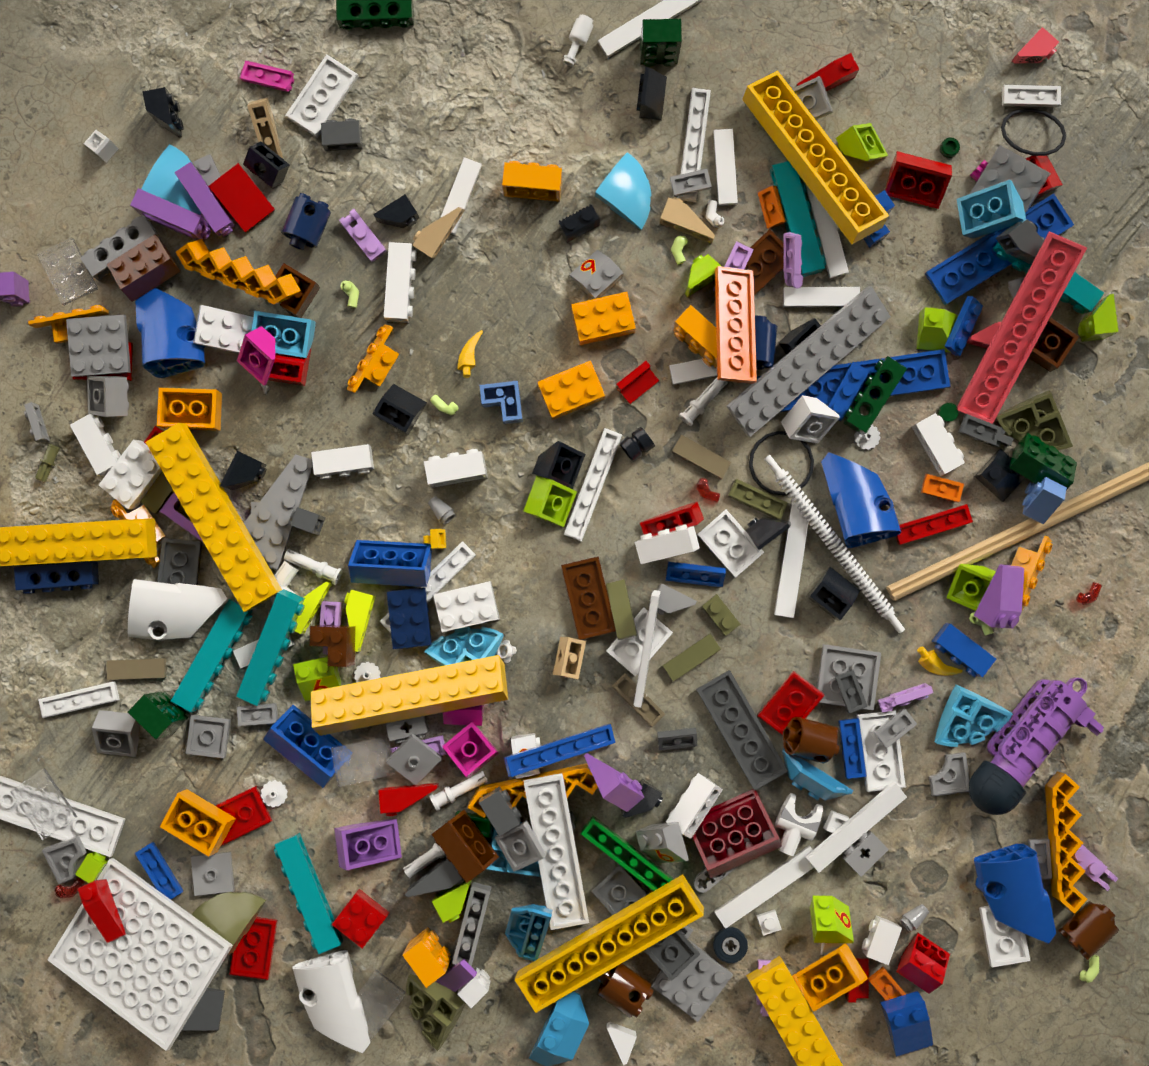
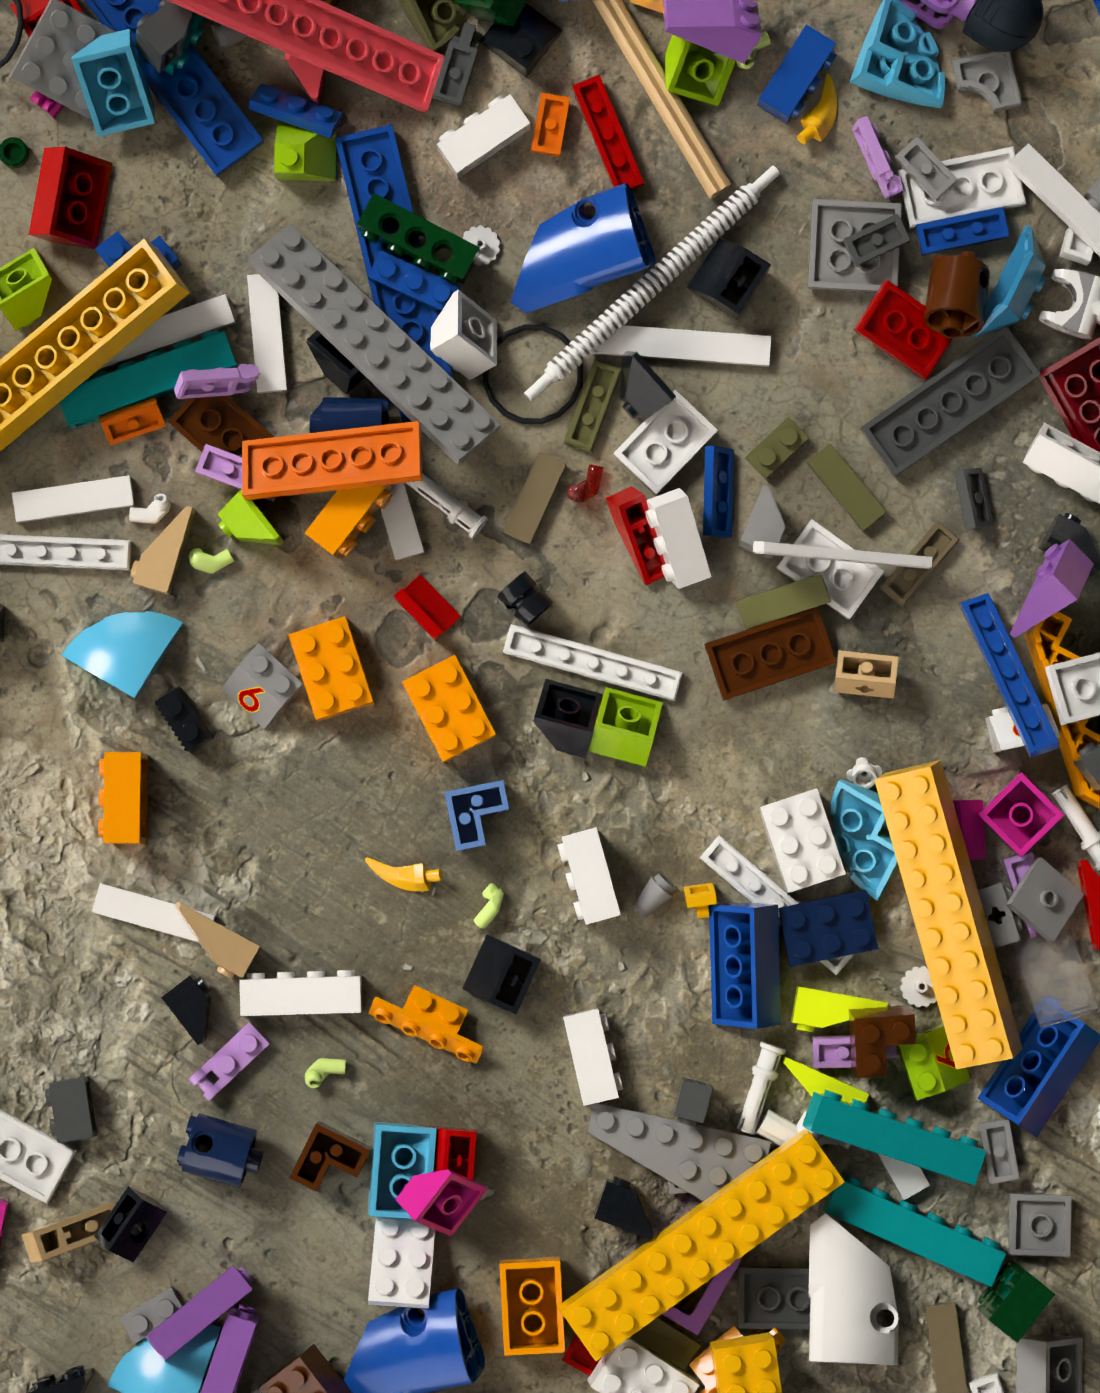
camera: 90 degrees left, 0 degrees up
(237, 273) = (313, 1248): light orange brick -> none
(241, 197) = (186, 1259): red tile -> none
(690, 182) = (105, 551): light grey plate -> none
(948, 412) = (431, 124): dark green tile -> none

